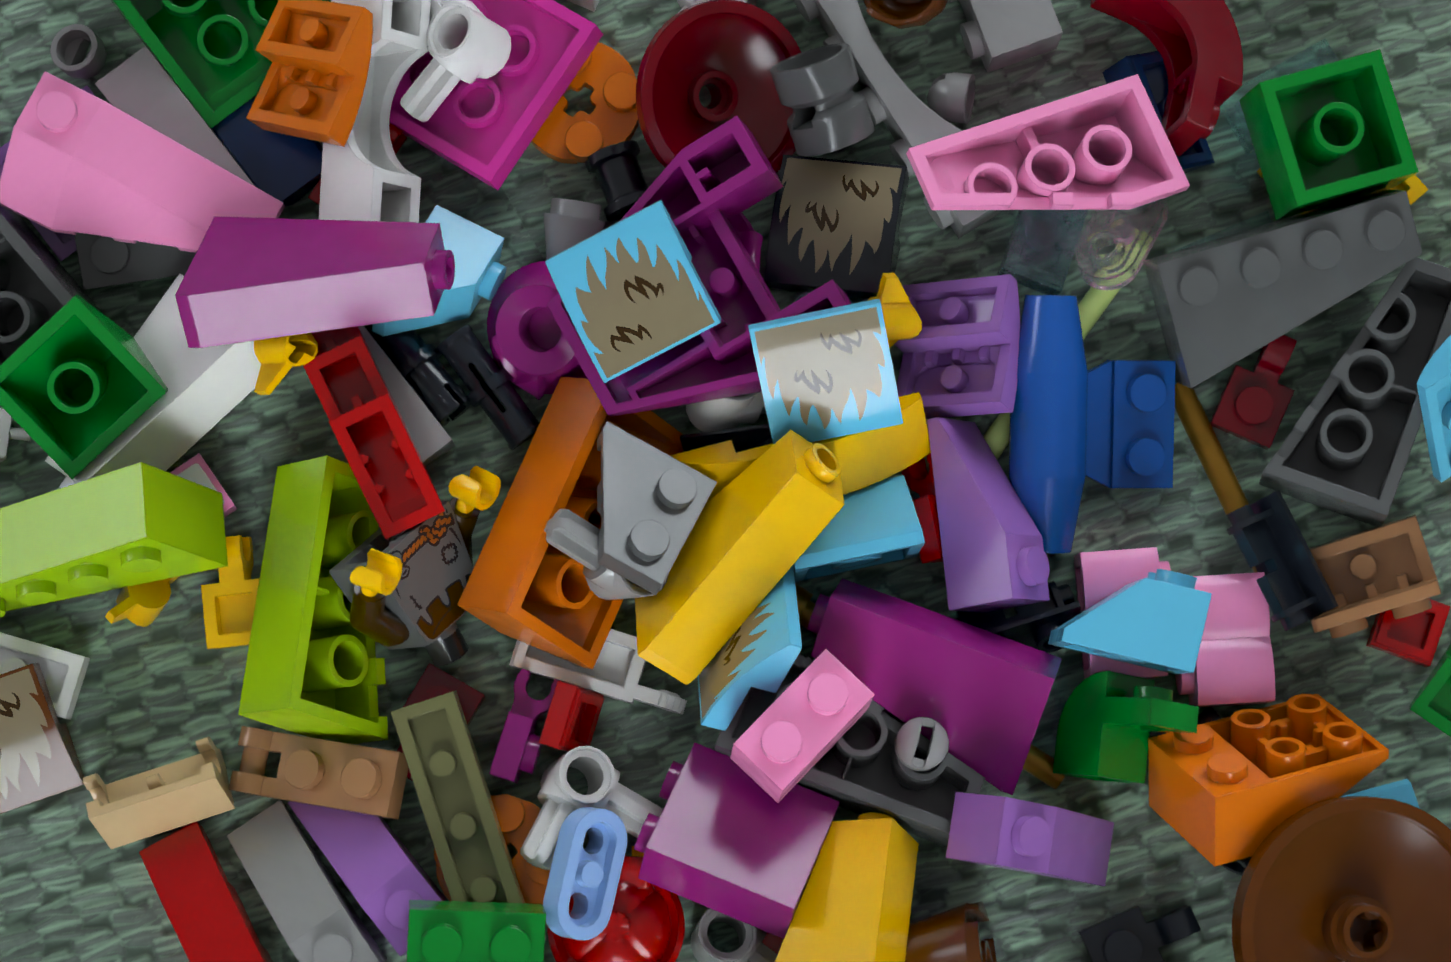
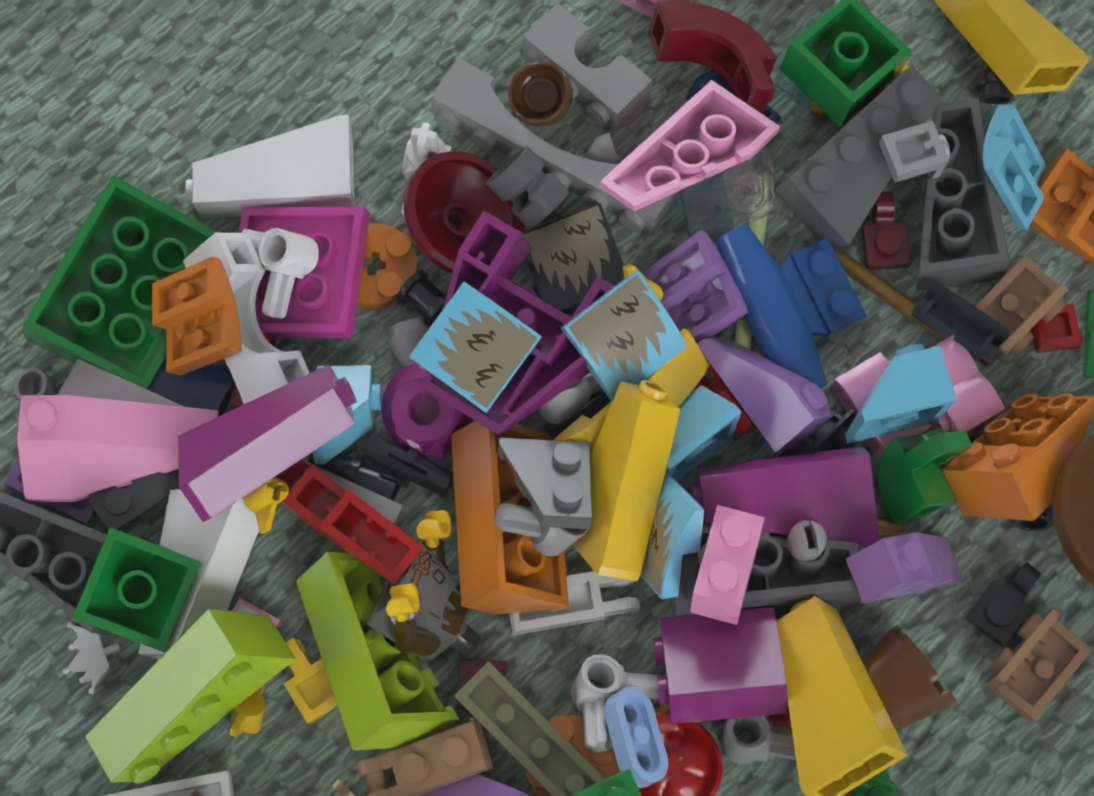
camera: 25 degrees left, 10 degrees down
(518, 745) = (546, 681): magenta plate -> none
(571, 717) = (570, 644): red tile -> none
(1340, 313) = (915, 152): none -> light grey bracket

